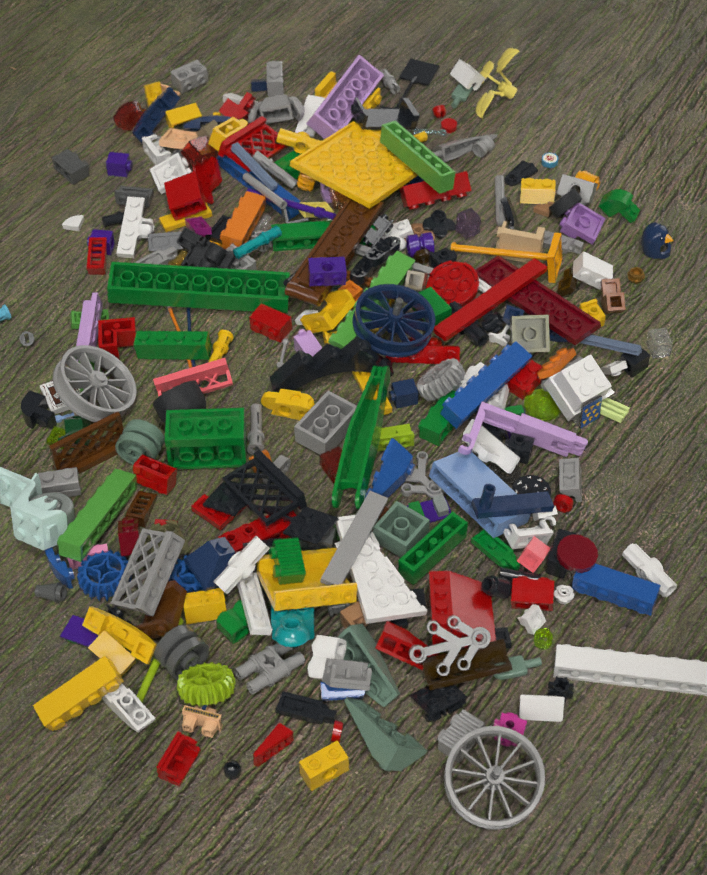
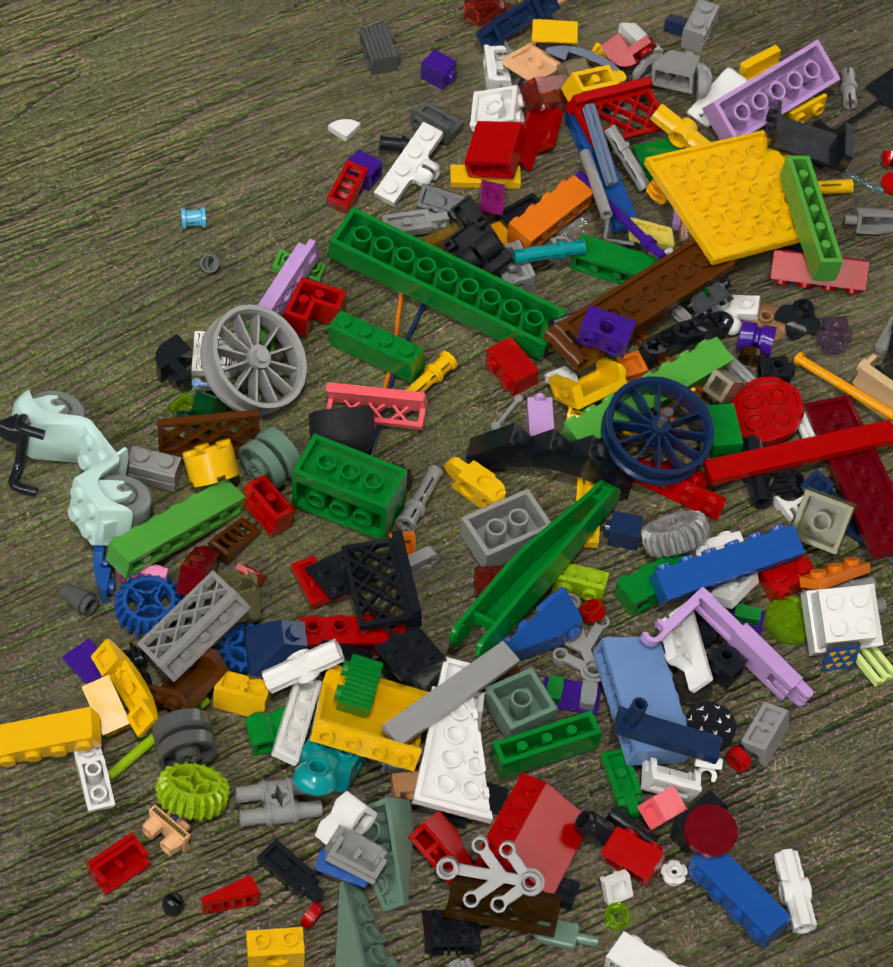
camera: 20 degrees right, 5 degrees up
(99, 462) = (210, 463): none -> yellow brick
(414, 449) = (592, 610): none -> red tile

